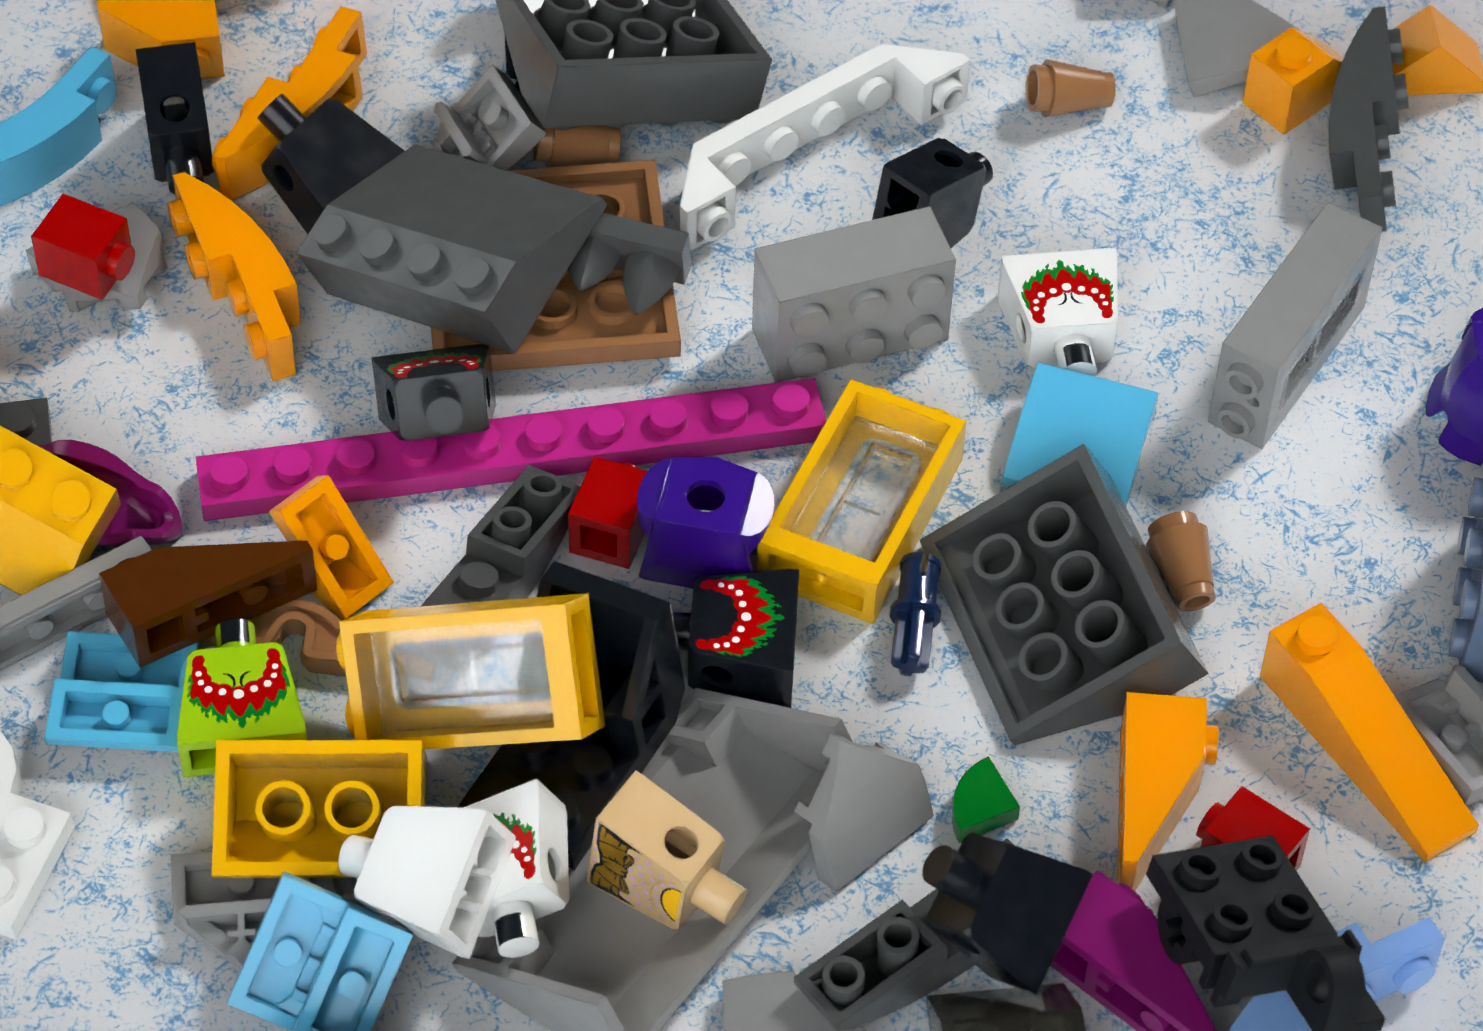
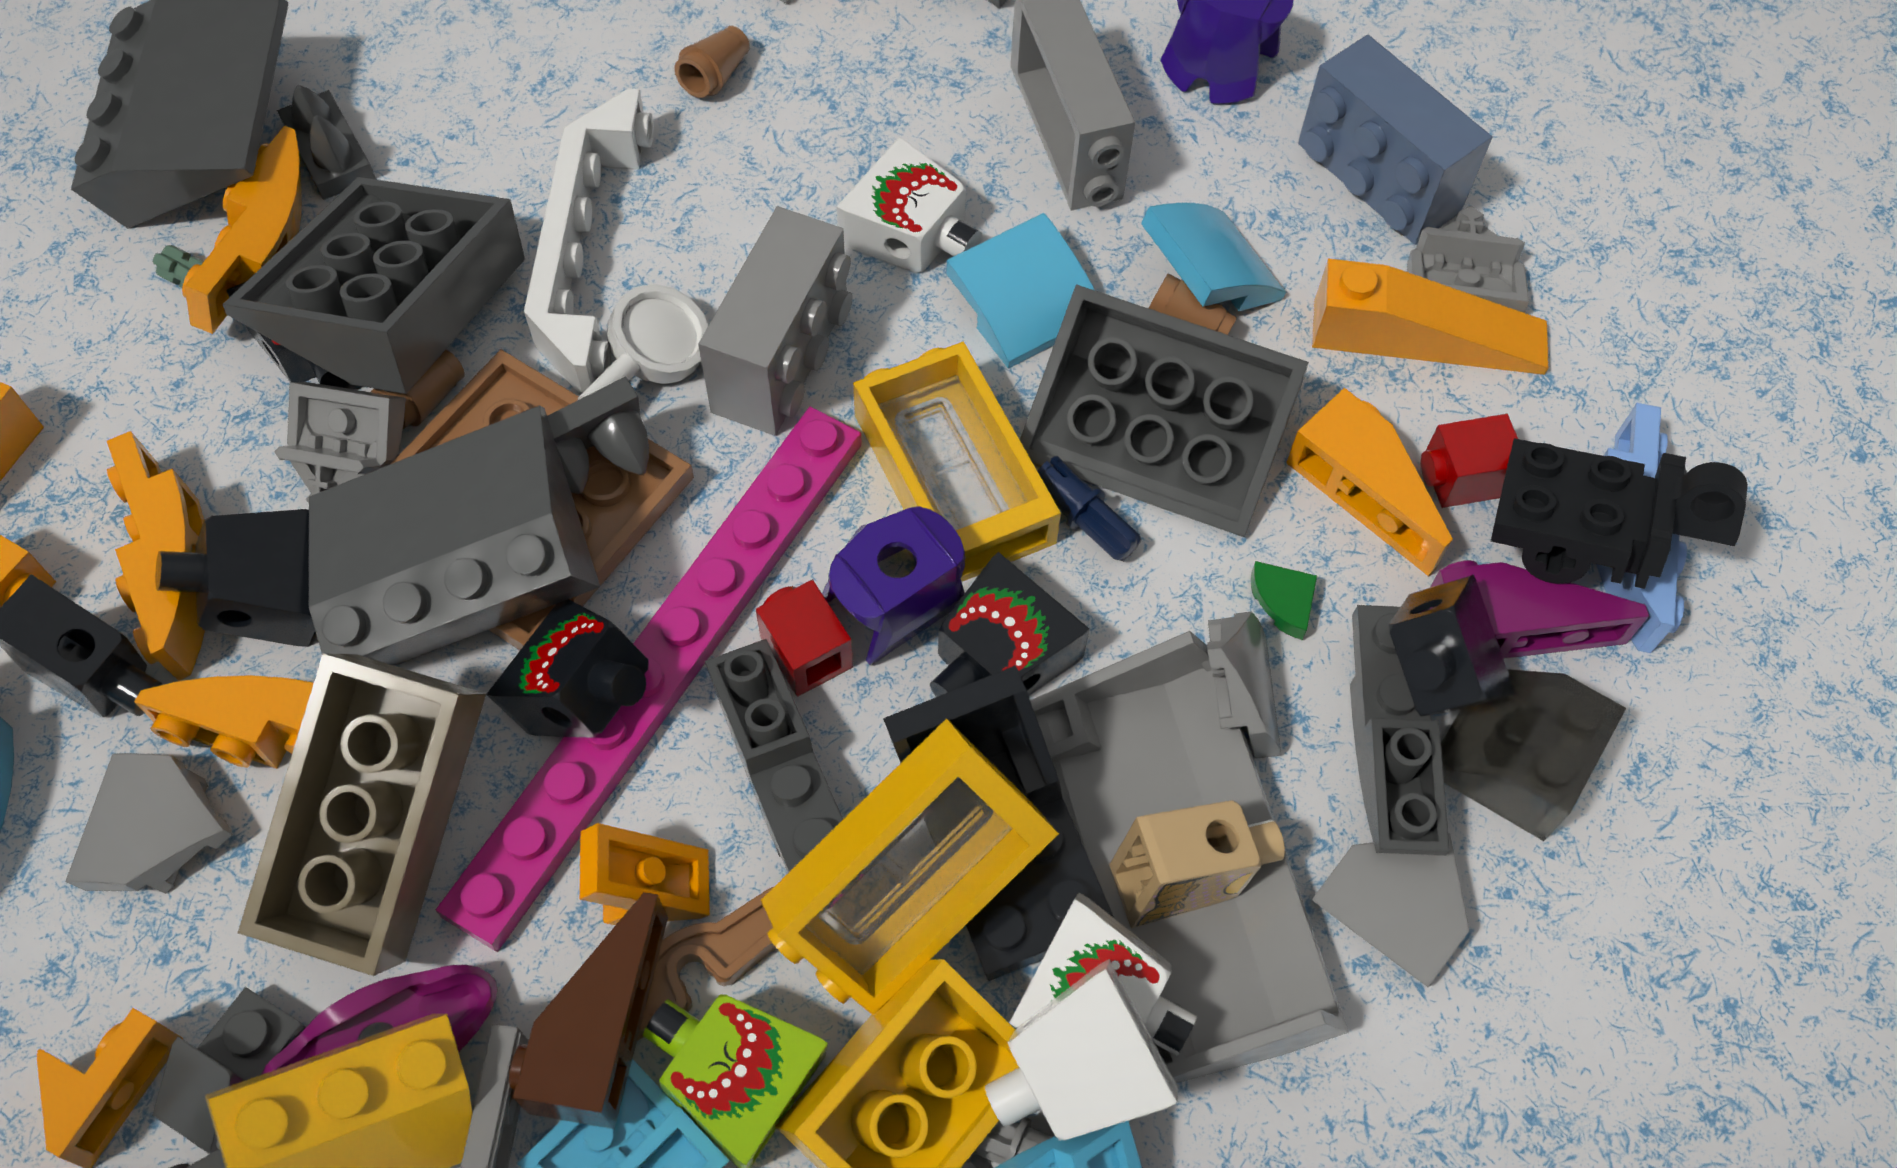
camera: 50 degrees left, 10 degrees up
(83, 247) = (133, 833): red brick -> none
(213, 346) = (361, 813): none -> dark tan brick
(757, 221) = (653, 337): none -> white piece
(939, 178) = (730, 197): black torso -> none
(1254, 535) = (1211, 255): none -> medium azure slope

